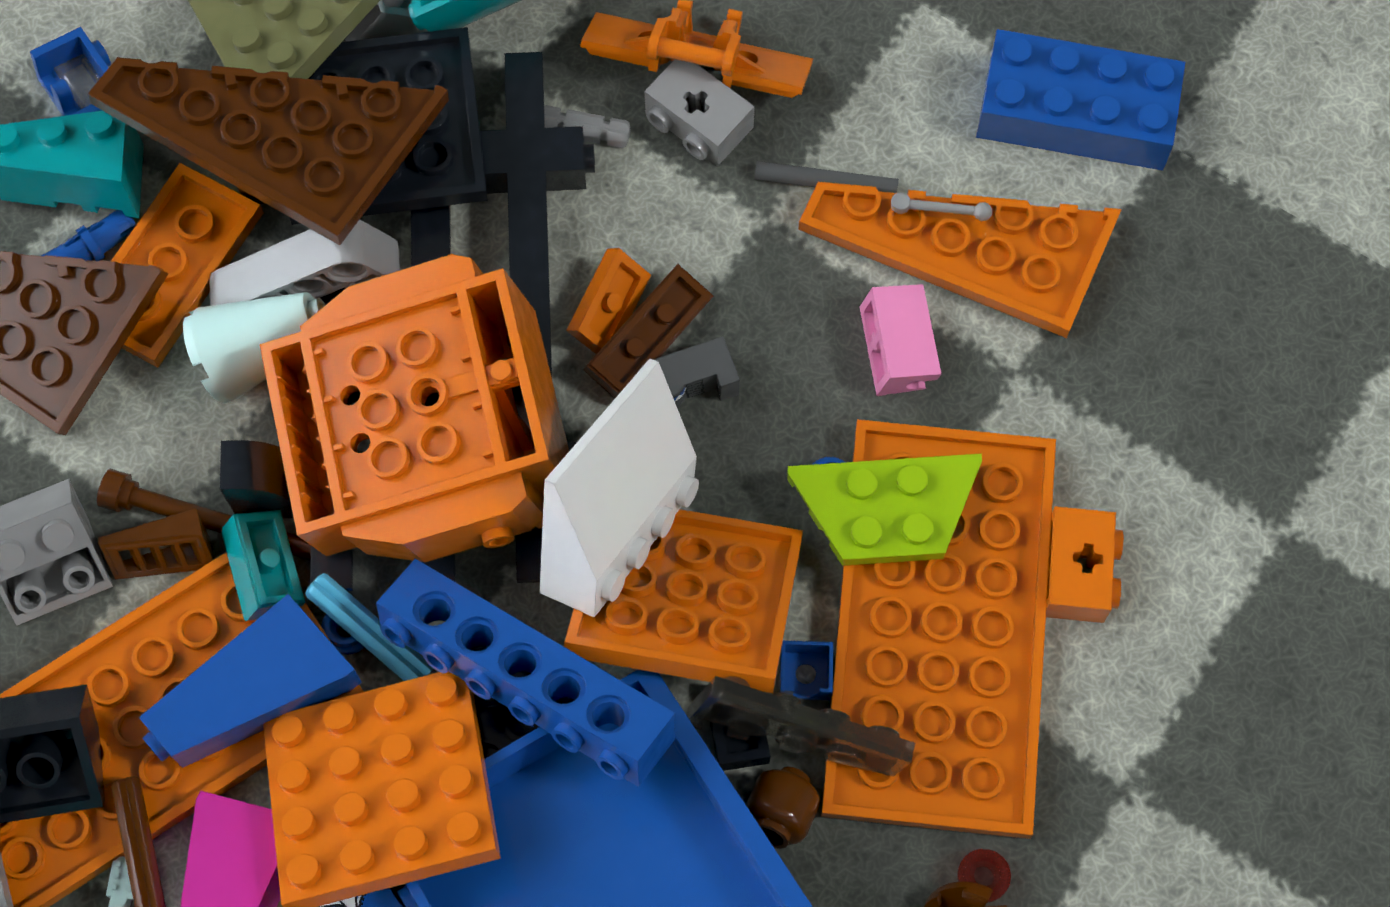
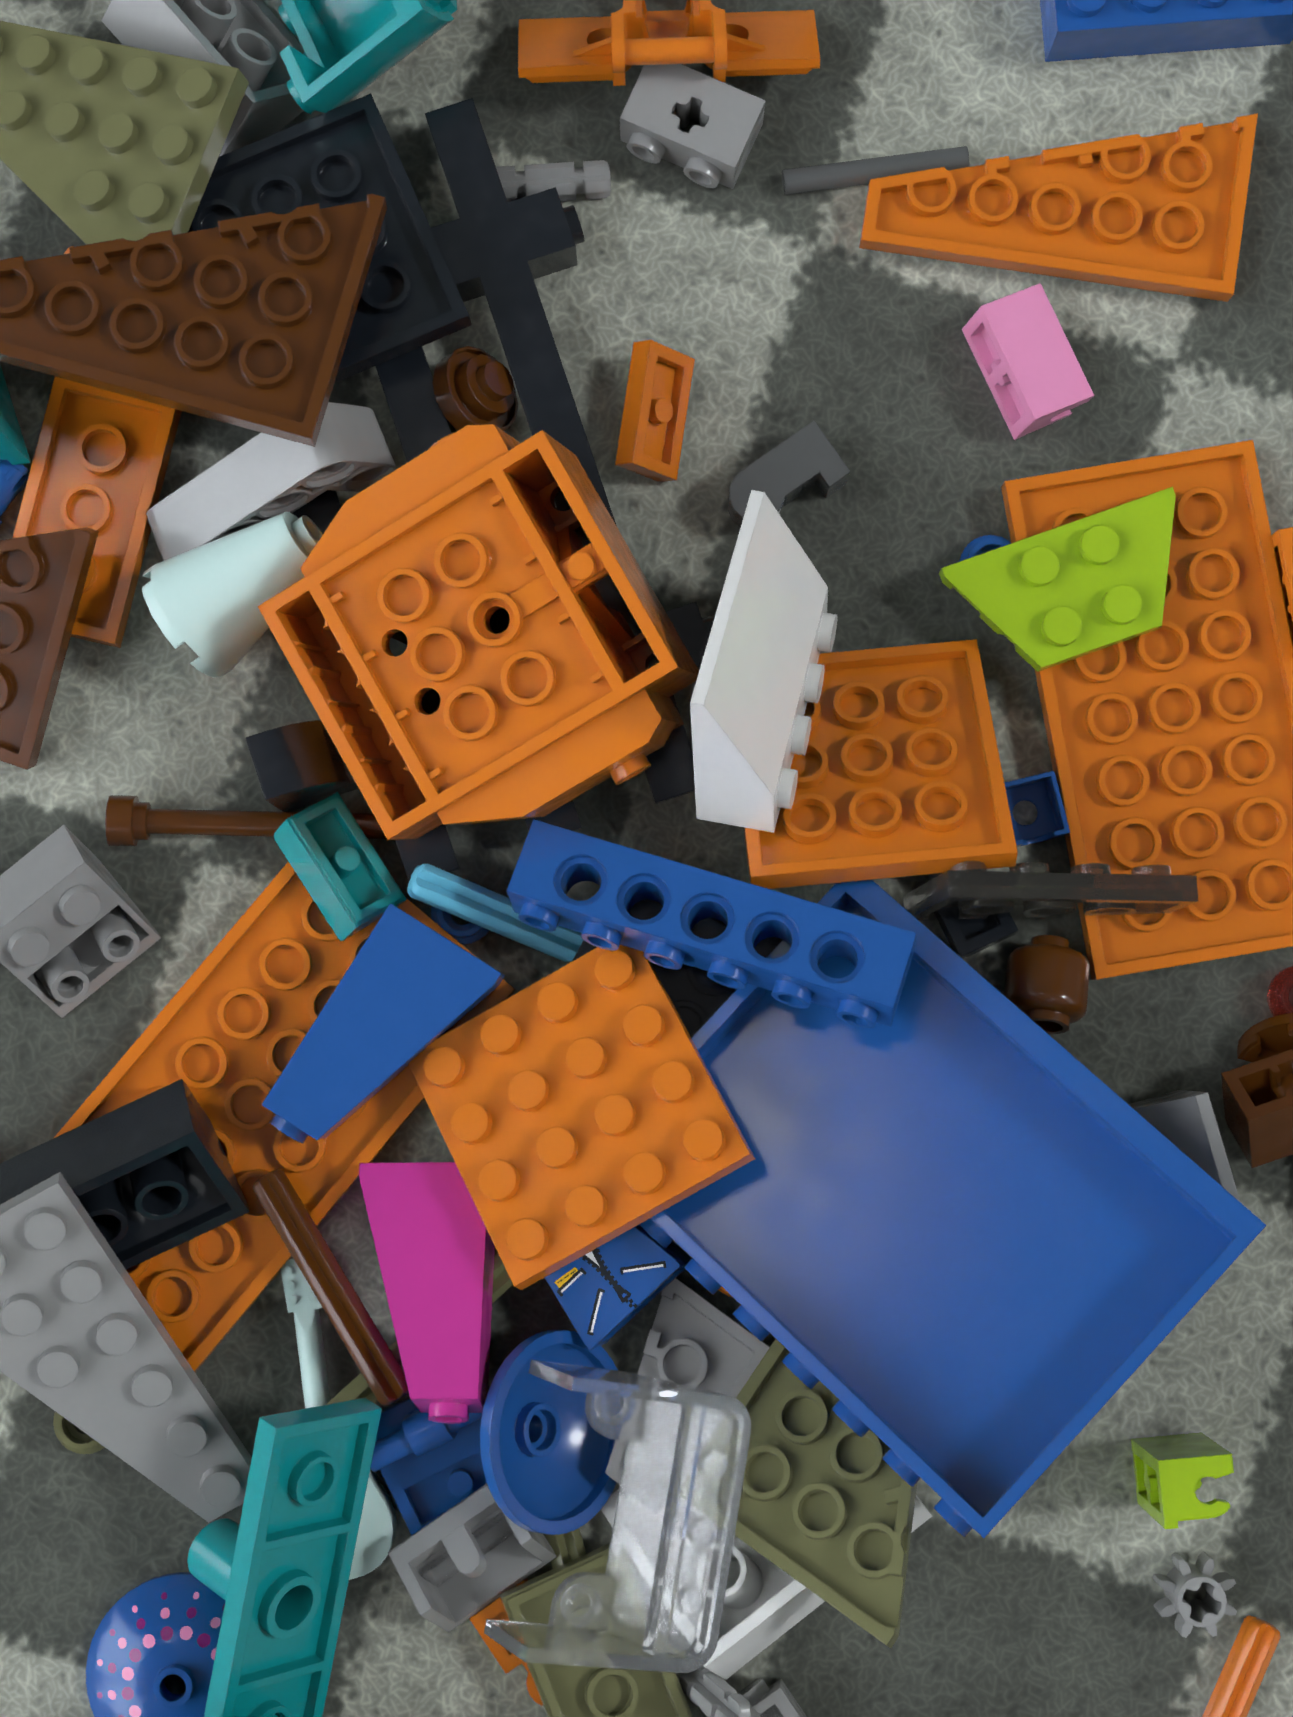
camera: 15 degrees left, 15 degrees up
(185, 534) = (205, 877): reddish brown slope -> none
(481, 243) = (475, 389): none -> reddish brown plate
(649, 330) = (715, 437): reddish brown tile -> none
(902, 203) = (984, 179): light grey hinge -> none

